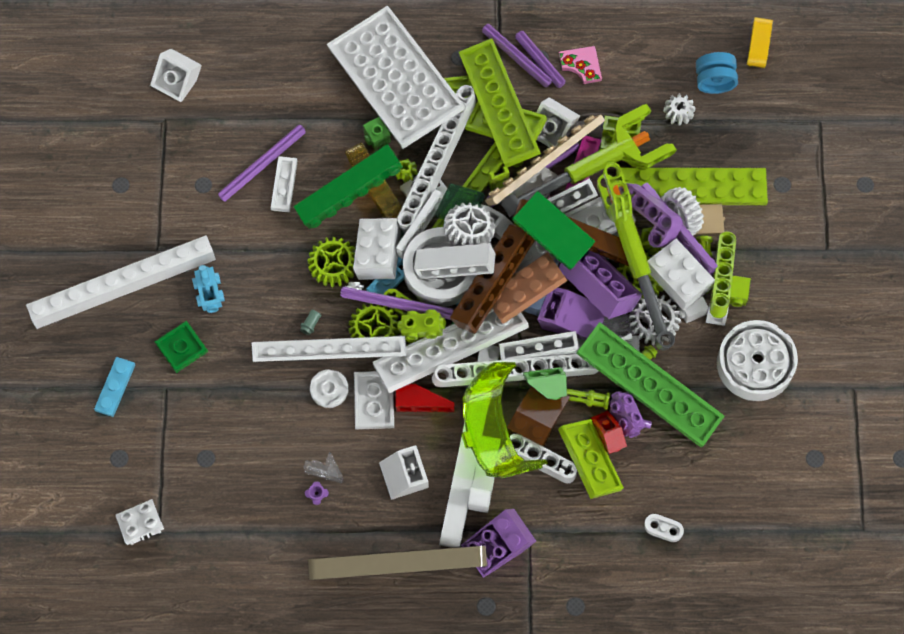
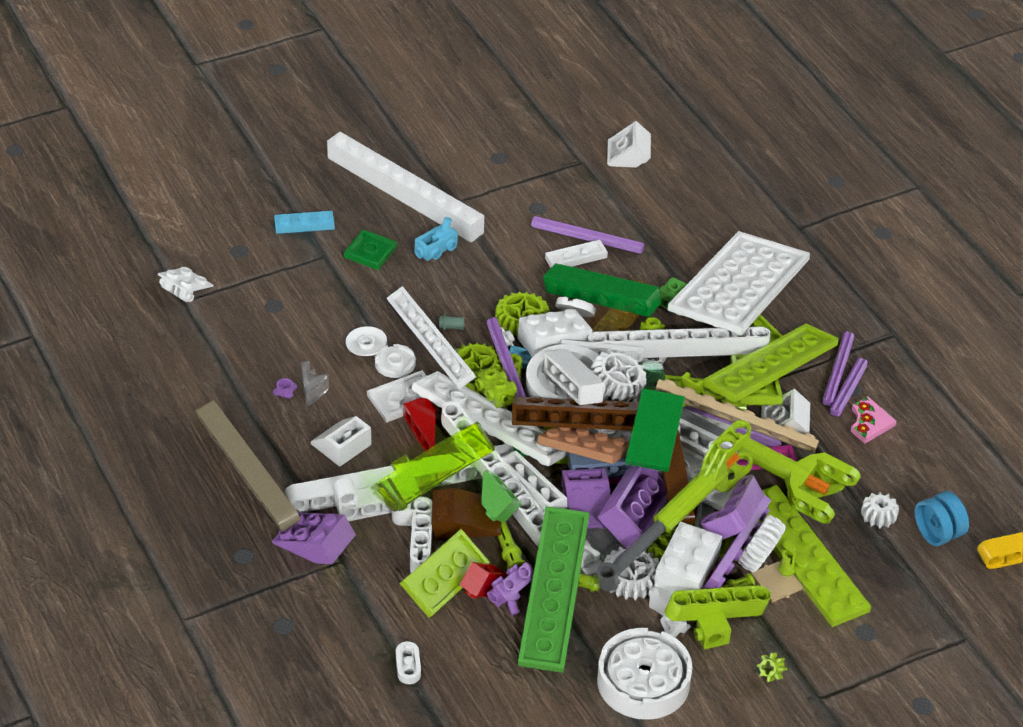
camera: 60 degrees right, 25 degrees down
(294, 394) = (366, 341): none -> white dish
(356, 215) = (583, 308): none -> white tile
(704, 200) = (787, 565): none -> lime pin
(792, 268) = (777, 663): none -> lime gear

